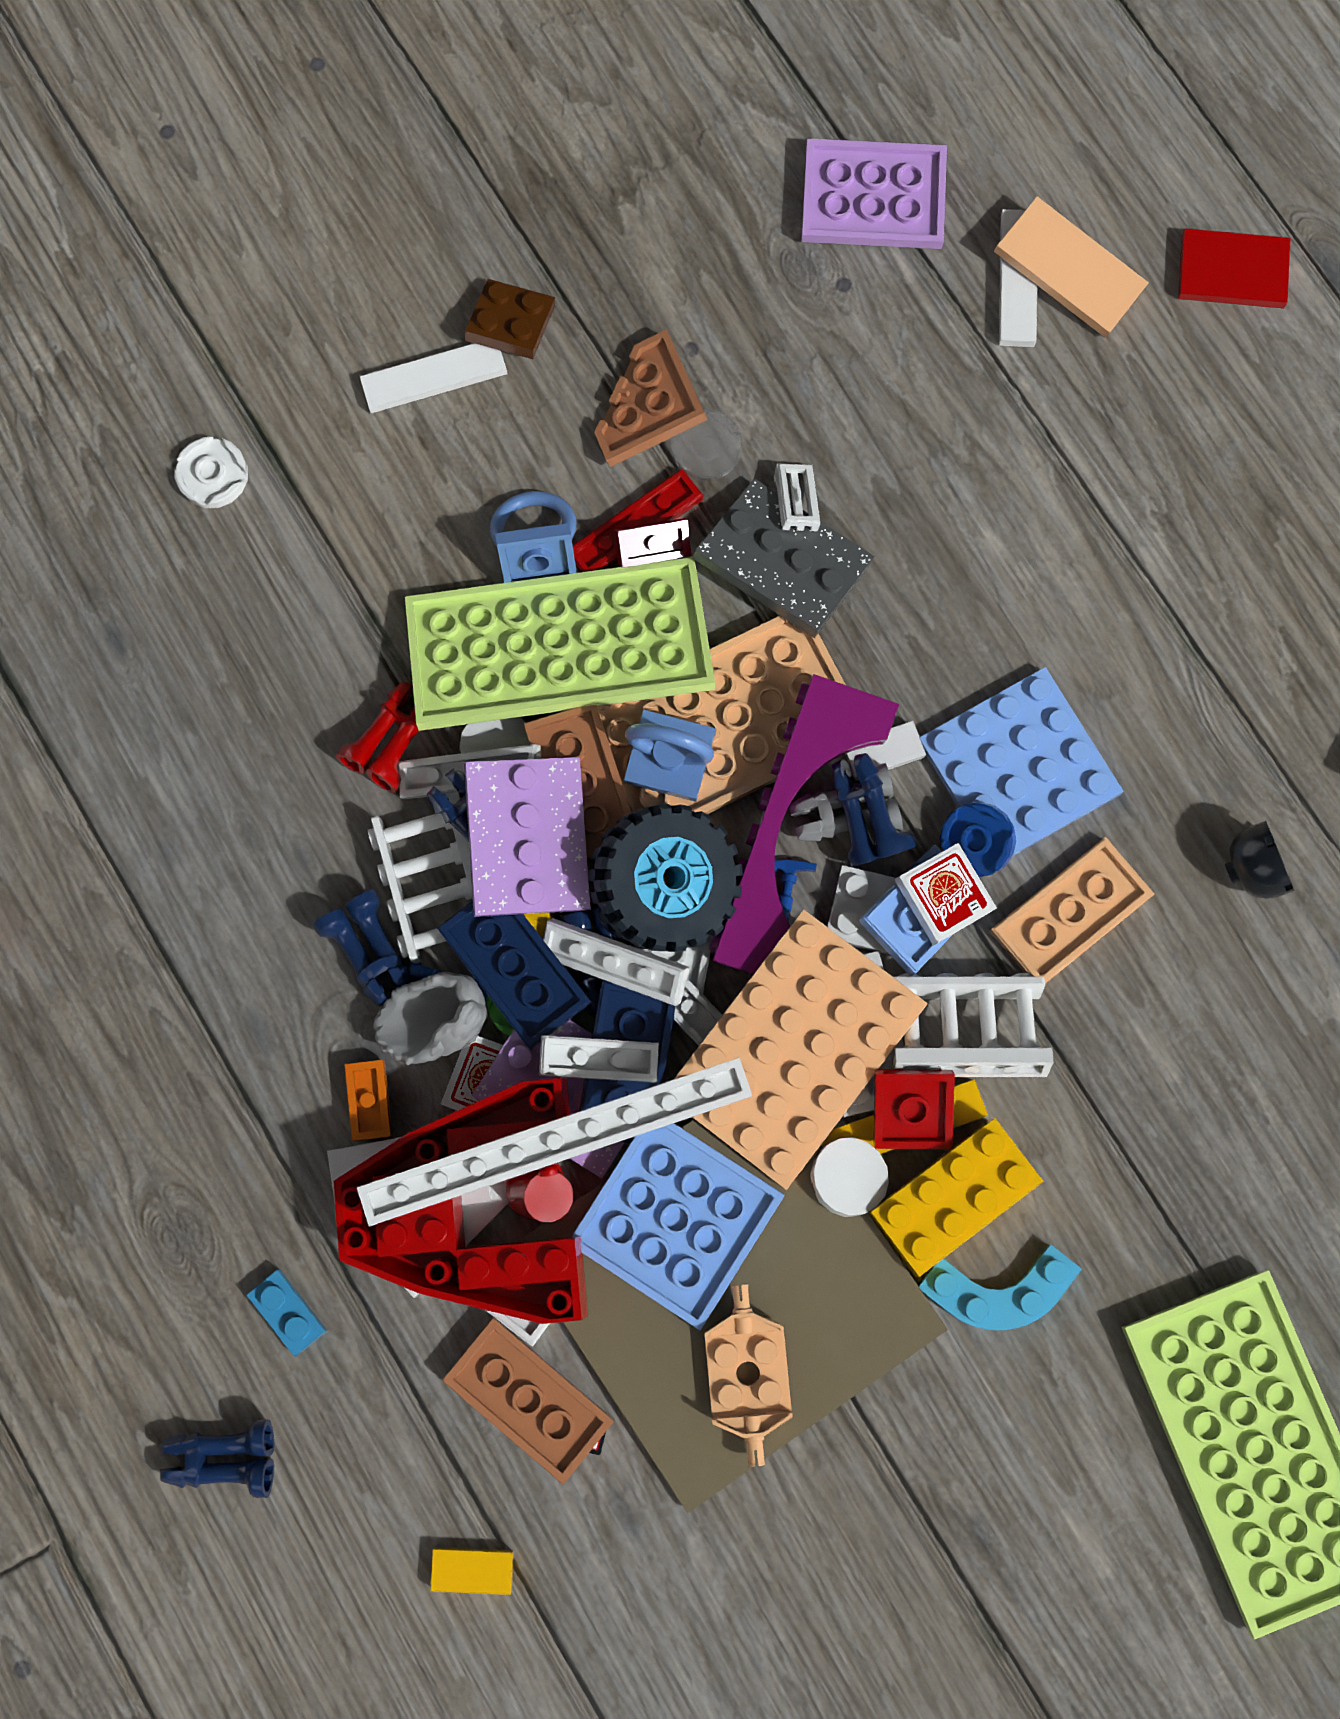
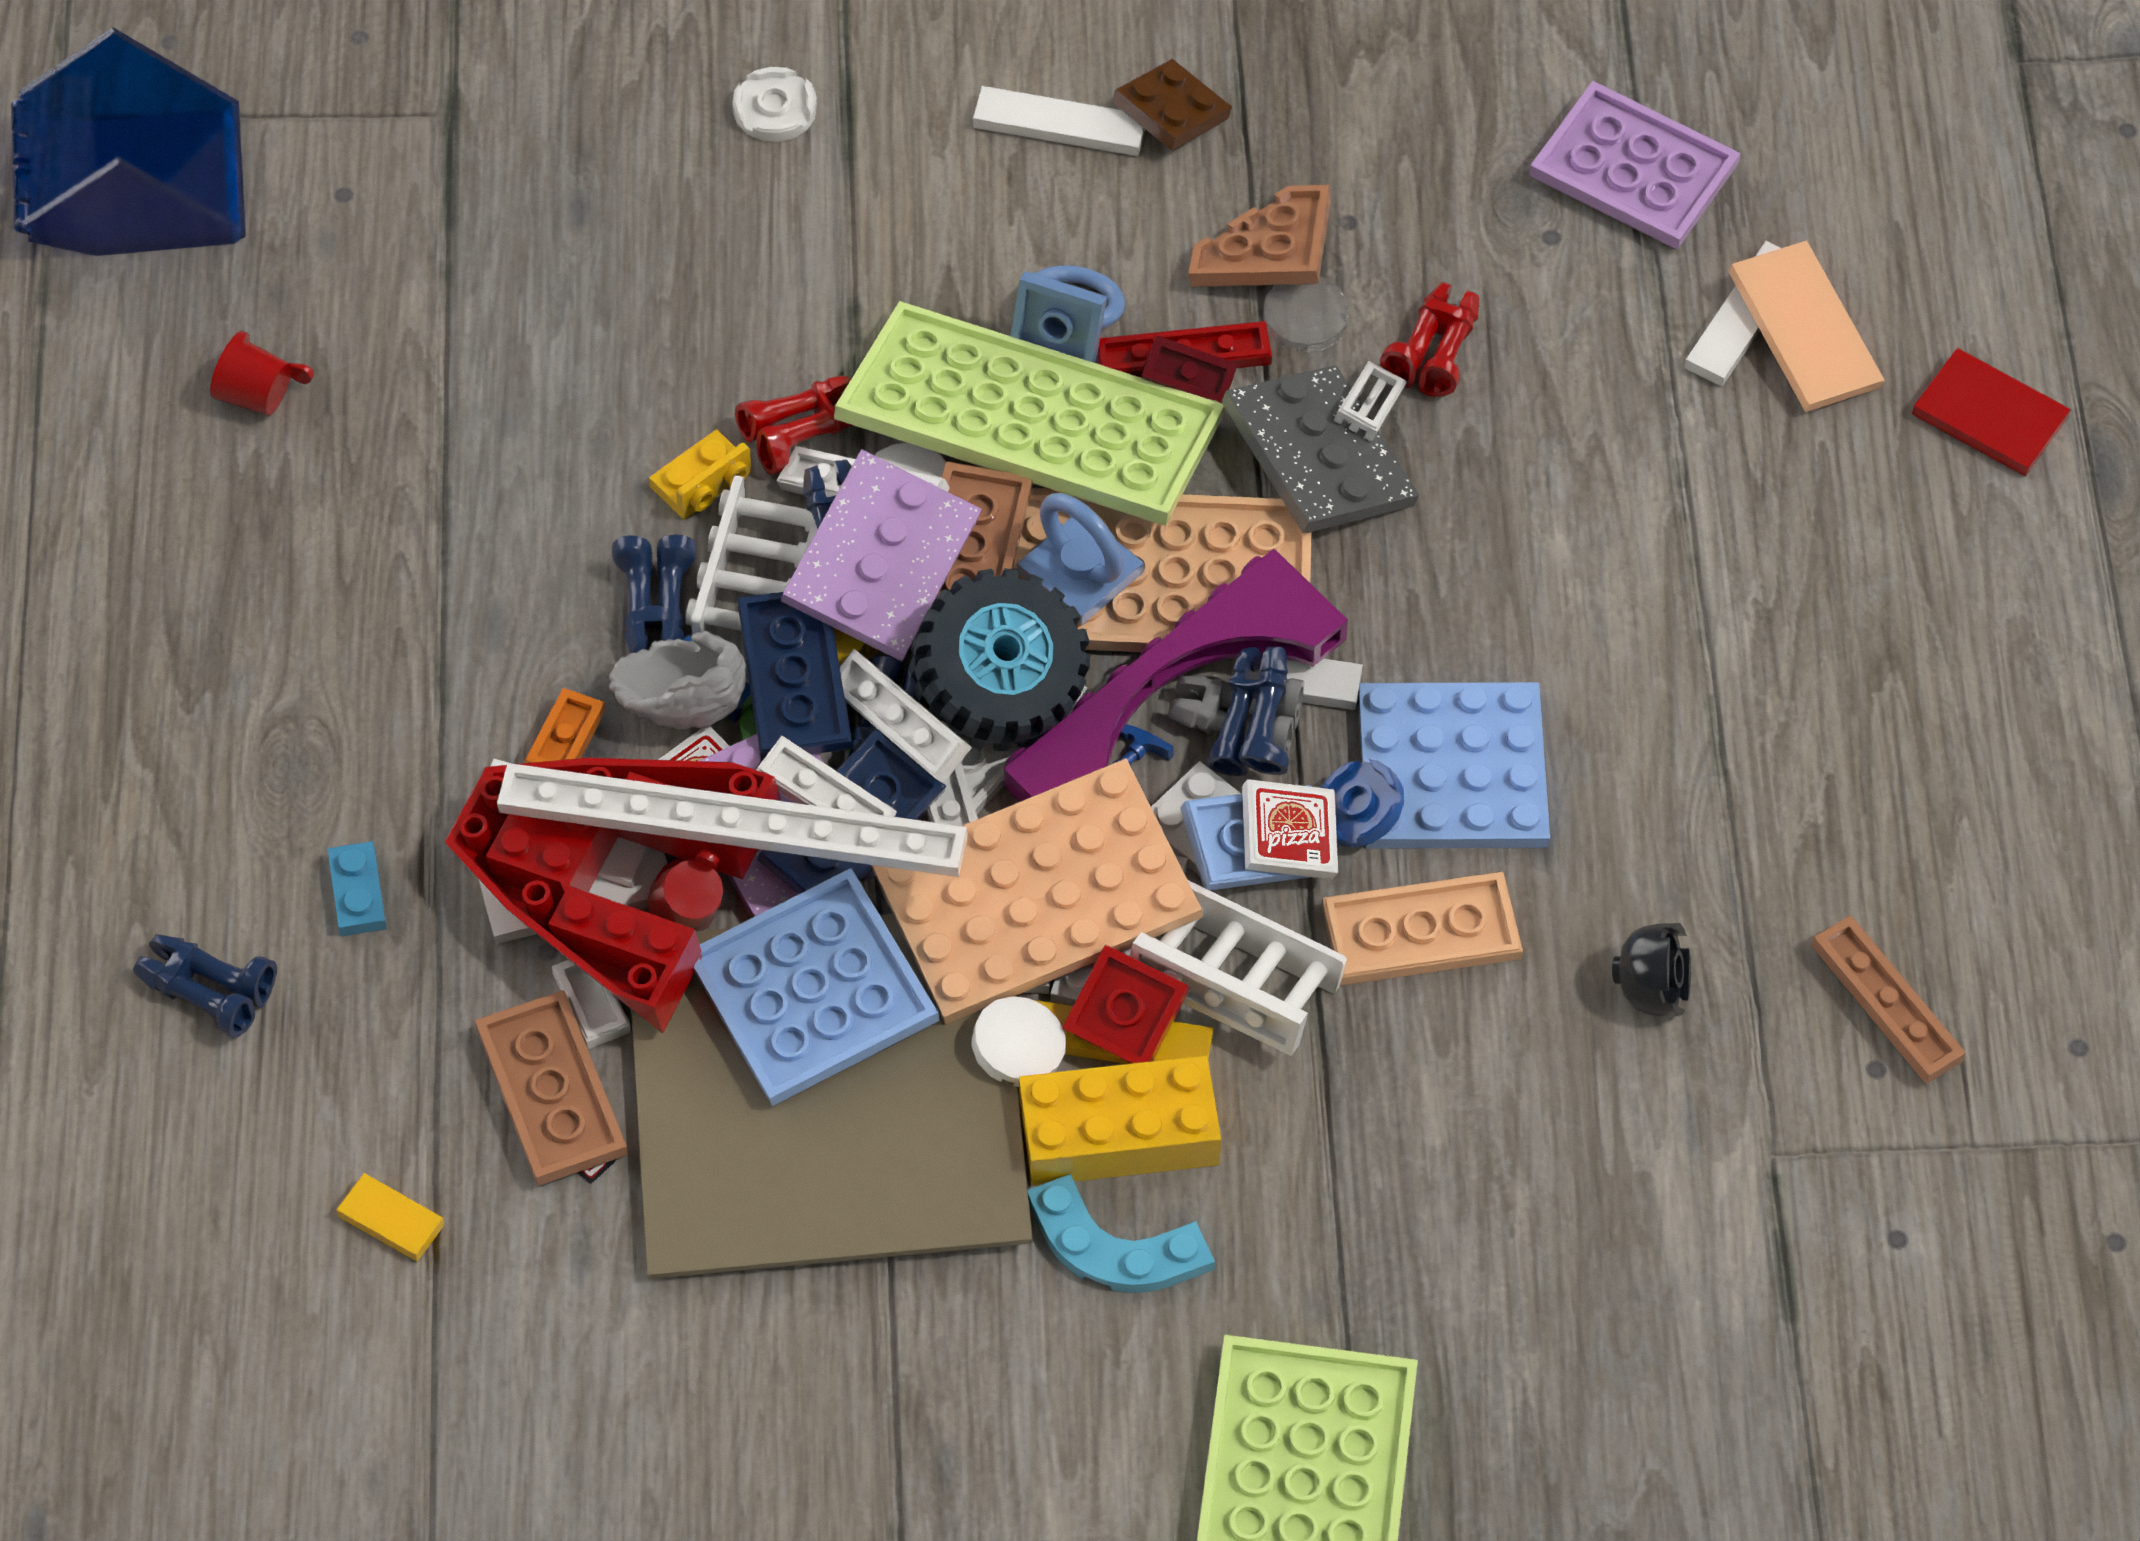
camera: 25 degrees right, 20 degrees down
(340, 821) = (701, 474): none -> yellow bracket
(743, 1408) = (801, 1131): light nougat plate -> none
(821, 396) = (1437, 316): none -> red piece

